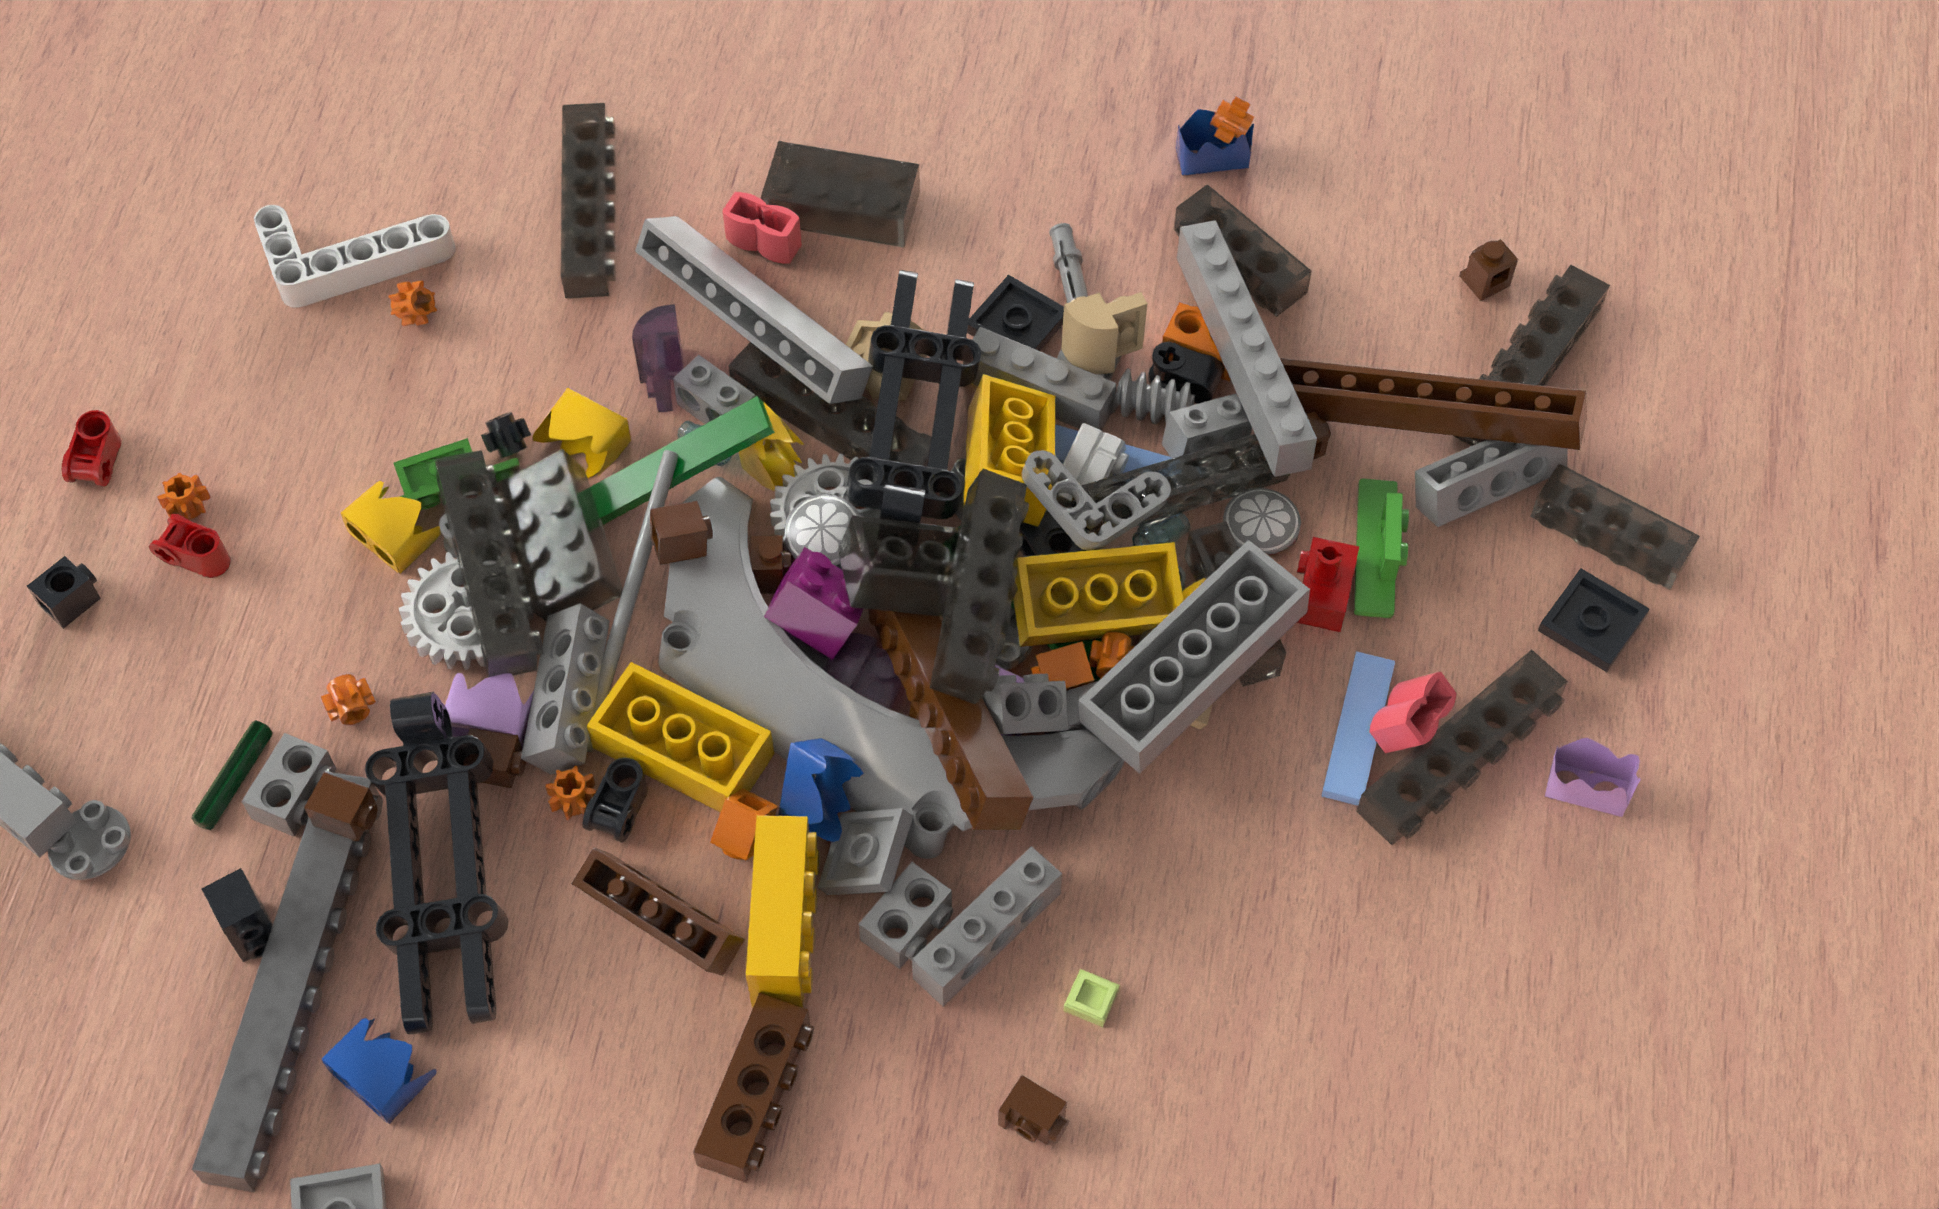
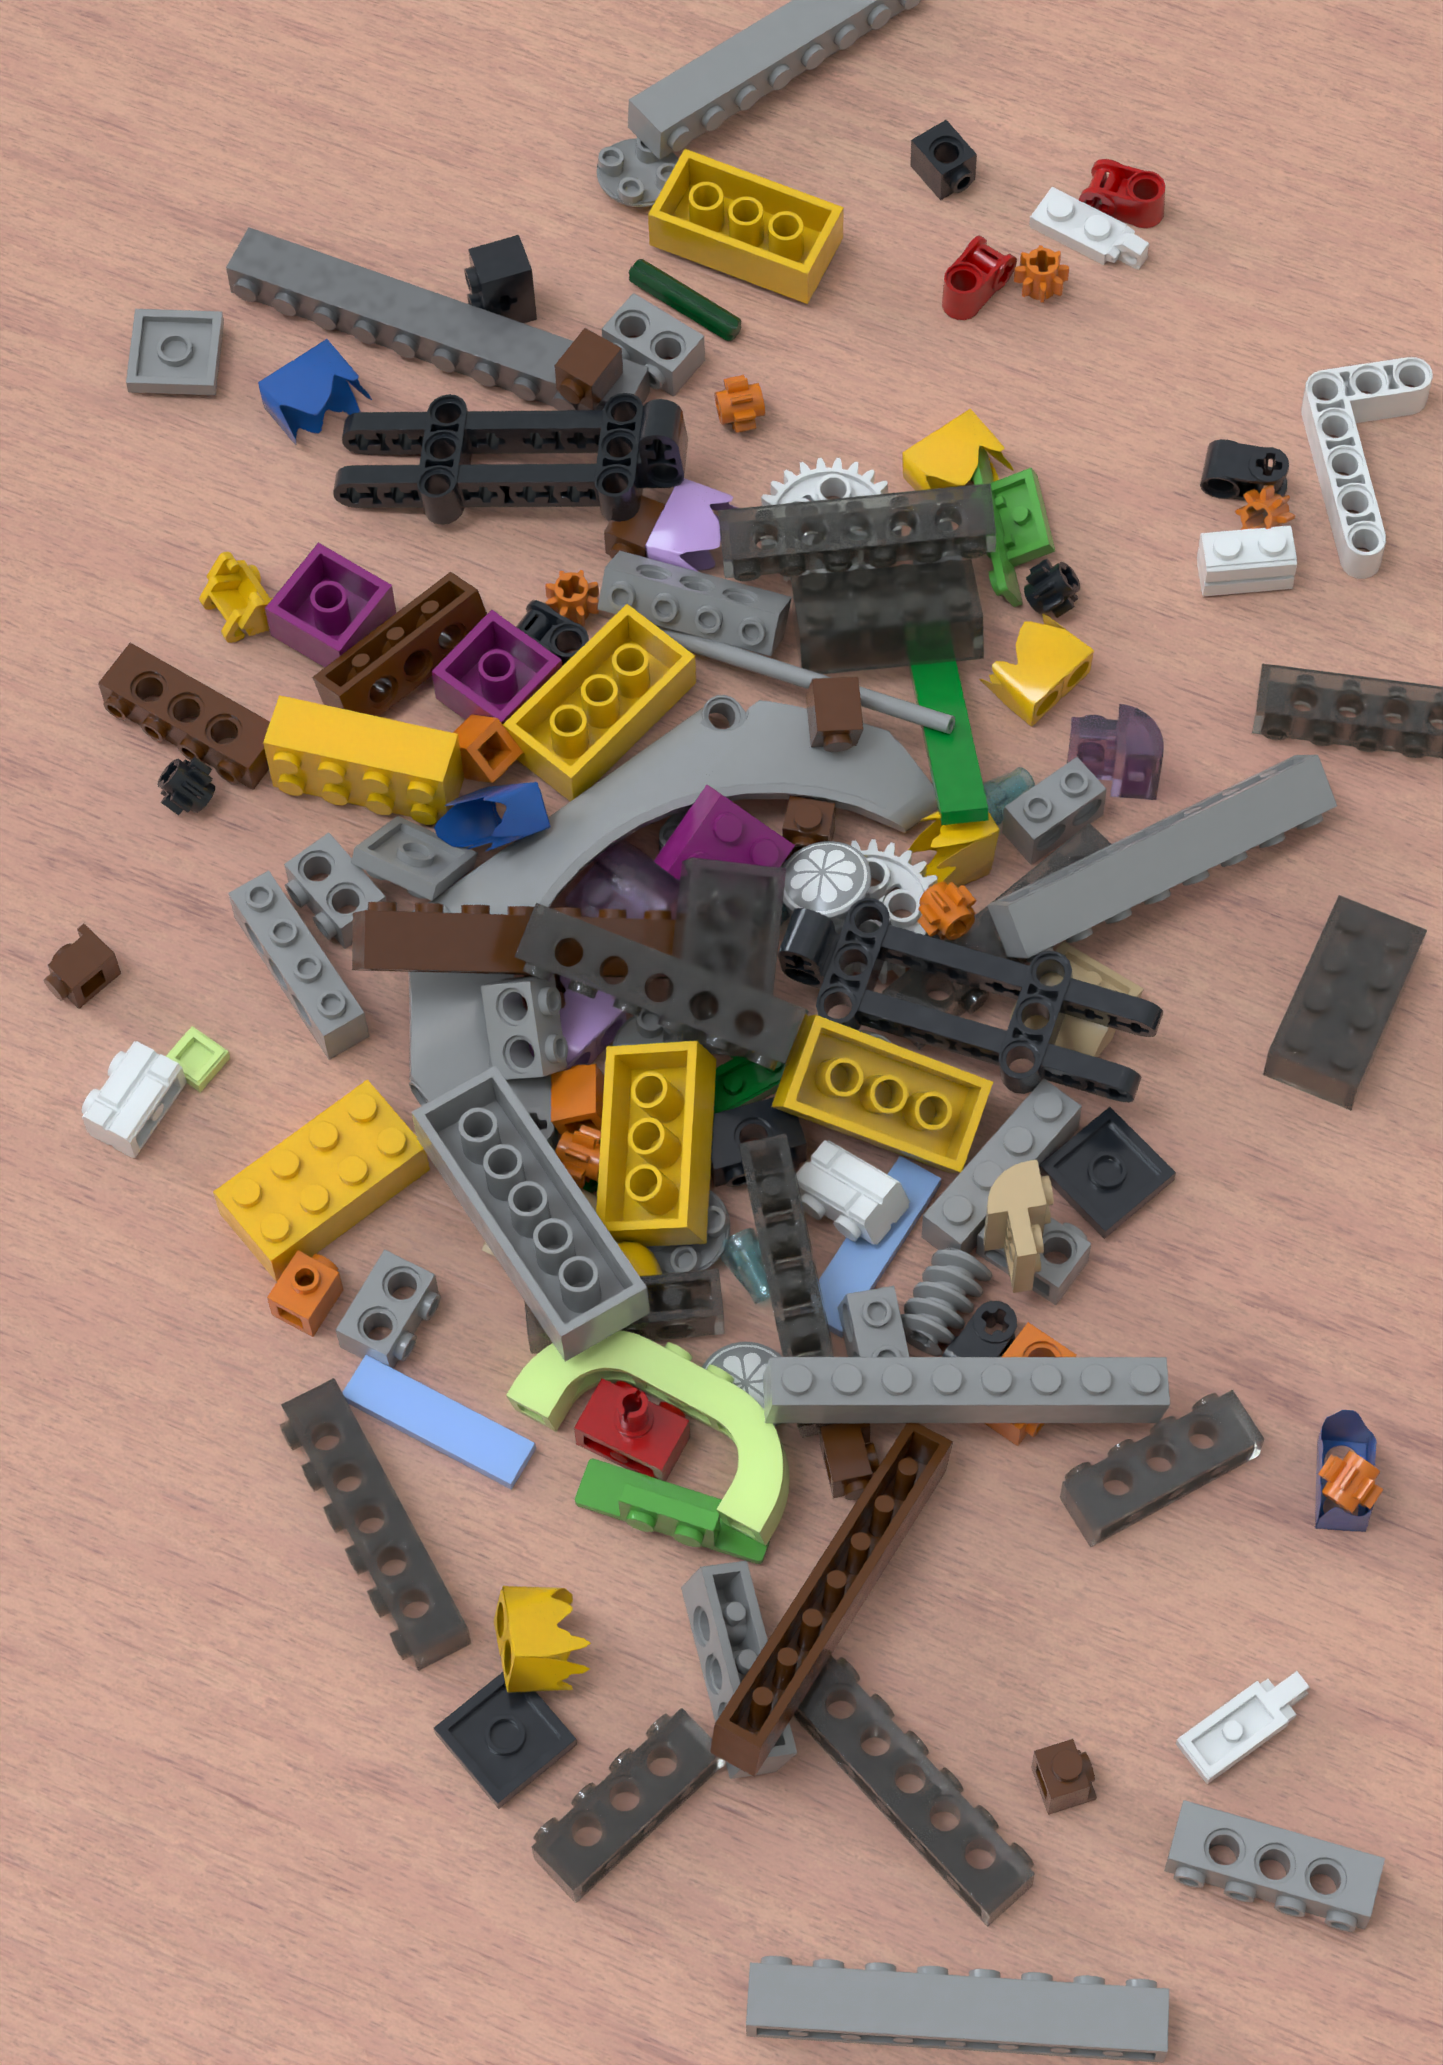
camera: 105 degrees right, 5 degrees up
(129, 477) = (1088, 230): none -> white hinge
(153, 728) = (746, 226): none -> yellow brick
(371, 323) = (1238, 468): none -> black piece
(459, 309) = (1246, 561): none -> white brick
(619, 1074) = (237, 595): none -> yellow piece
(623, 984) = (328, 606): none -> magenta brick
(668, 826) = (493, 670): none -> magenta brick
(762, 227) = (1300, 898): coral brick -> none
(829, 1068) = (186, 785): none -> black gear
(834, 438) = (946, 910): none -> orange gear
(1068, 261) = (1160, 1253): light grey pin -> none
(1087, 511) = (744, 1129): light grey beam -> none
(1149, 1032) = (133, 1098): none -> white brick
(1184, 856) = (322, 1179): none -> yellow brick
(1280, 790) = (378, 1308): none -> light grey brick
(1284, 845) = (306, 1292): none -> orange brick
(1333, 479) = (761, 1485): none -> yellowish green arch
(1410, 179) = (1241, 1725): none -> white hinge
(1413, 712) = (418, 1462): coral brick -> none
(1502, 148) = (1302, 1856): none -> light grey brick
(1520, 608) = (531, 1642): none -> yellow piece
(1588, 756) = (261, 1659): lavender piece -> none
(1677, 307) = (957, 2010): none -> light grey brick

